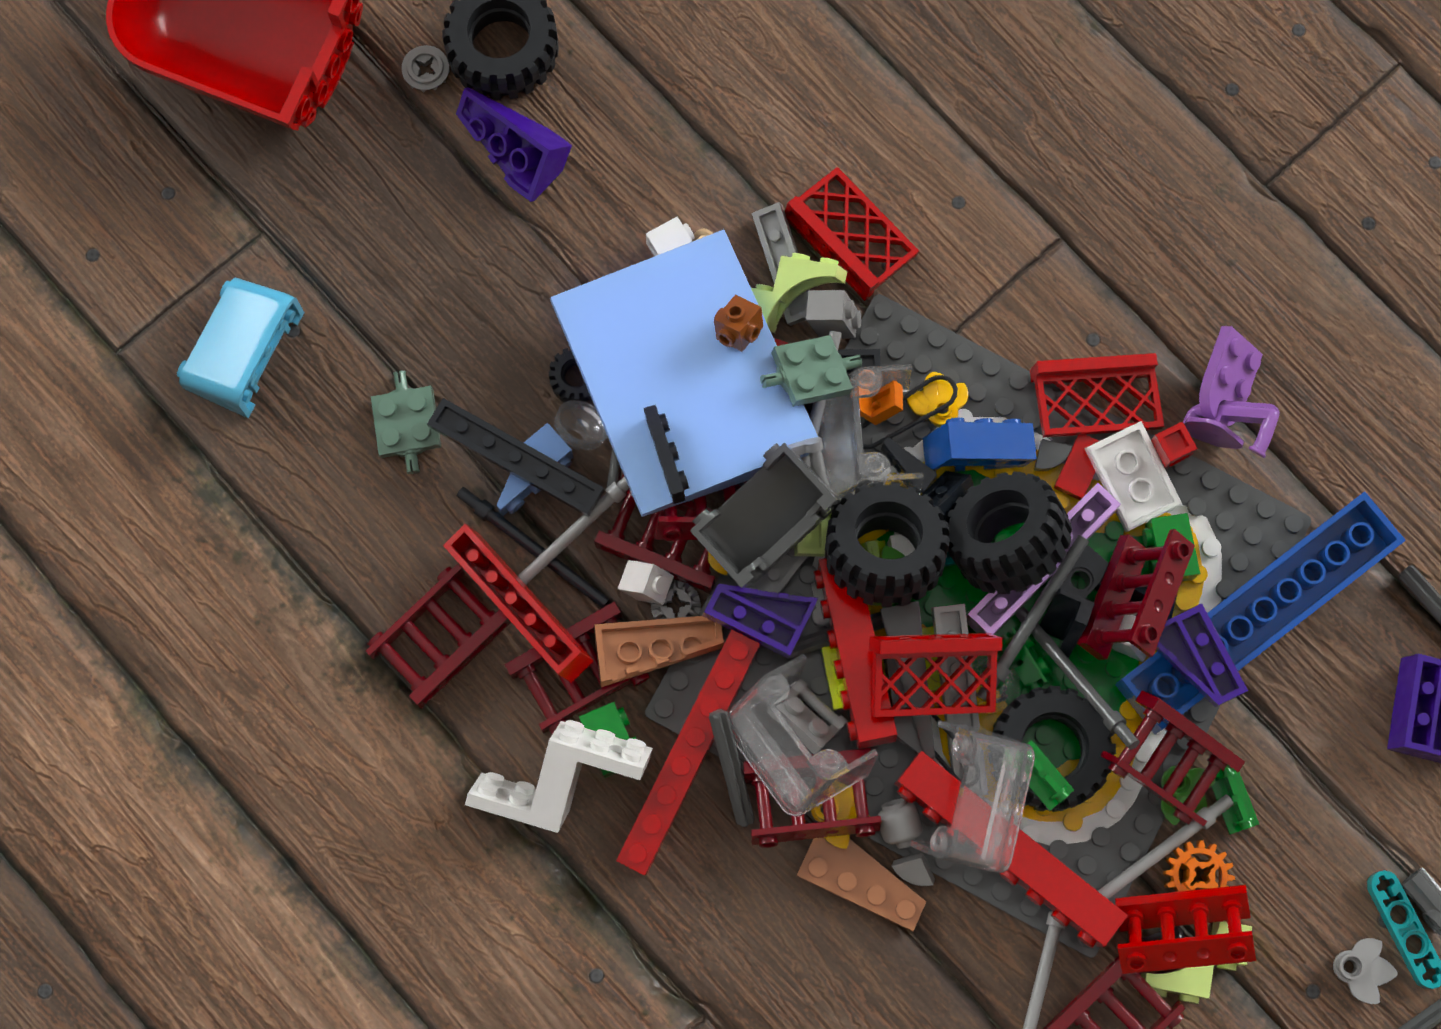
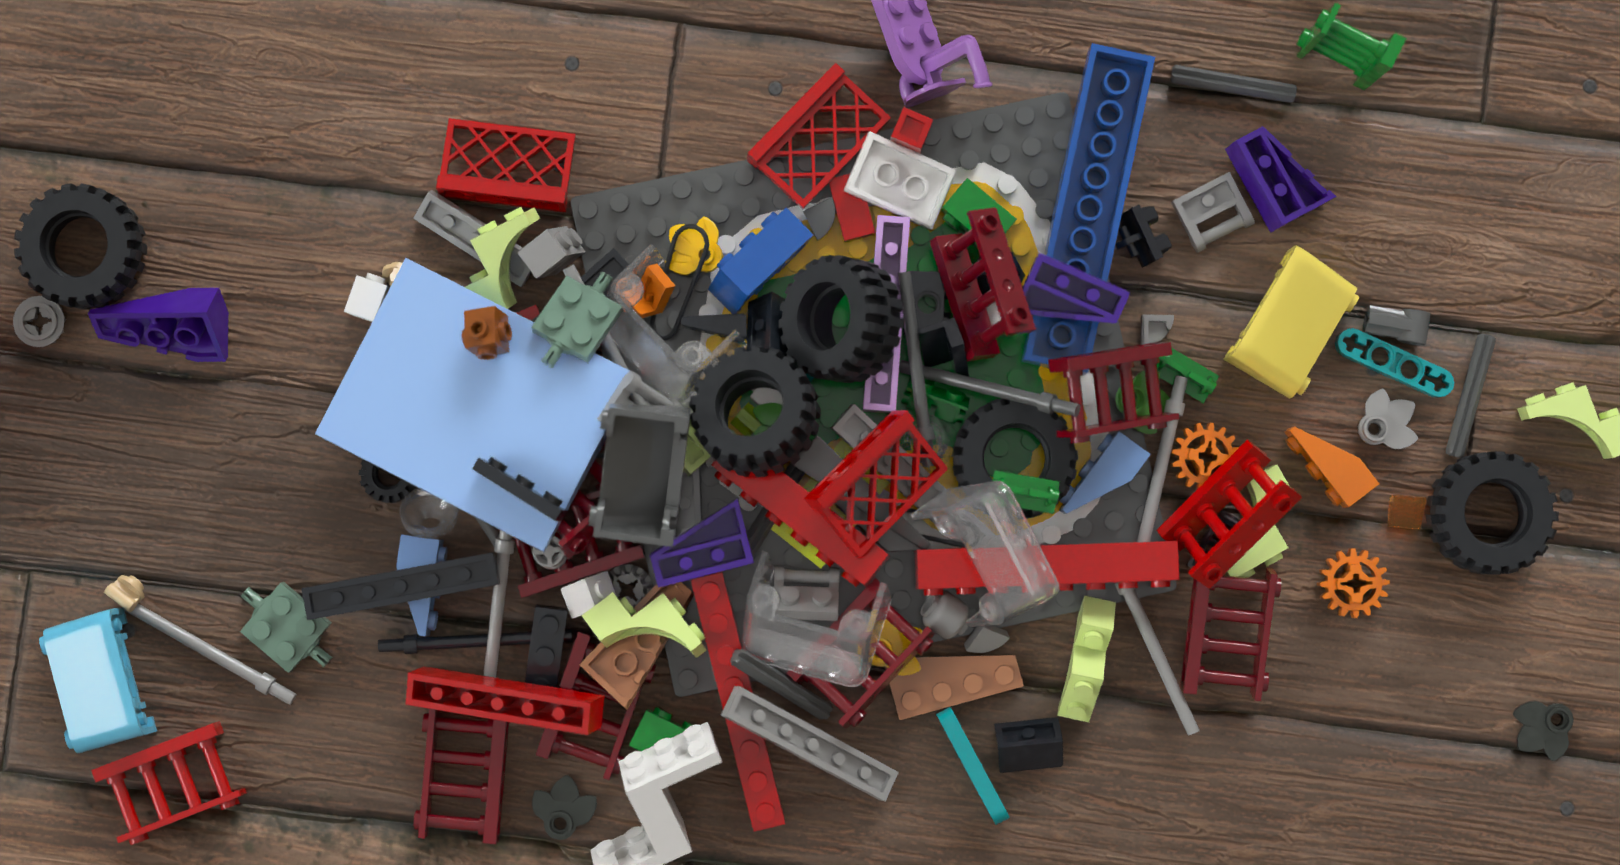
camera: 40 degrees left, 10 degrees up
(220, 430) = (145, 762): none -> red fence
(316, 300) = (126, 592): none -> tan plate
(354, 447) = (264, 682): none -> light grey bar
(492, 720) = (565, 803): none -> pearl dark grey plate
(582, 592) = (546, 645): none -> black plate
(644, 522) = (545, 558): none -> light grey wheel
(651, 615) = (613, 621): none -> yellowish green arch
(715, 830) = (809, 743): none -> light grey plate
(823, 958) = (973, 765): none -> teal beam
(879, 980) = (1029, 744): none -> black panel
(979, 951) = (1087, 659): none -> yellowish green arch
(1118, 822) = (1114, 467): none -> medium blue slope
(1241, 745) = (1155, 327): none -> light grey tile
(1282, 666) = (1139, 237): none -> black hips
(1296, 973) = (1340, 471): none -> orange slope
(1350, 830) = (1293, 323): none -> light yellow windscreen
(1358, 687) = (1207, 202): none -> light grey plate

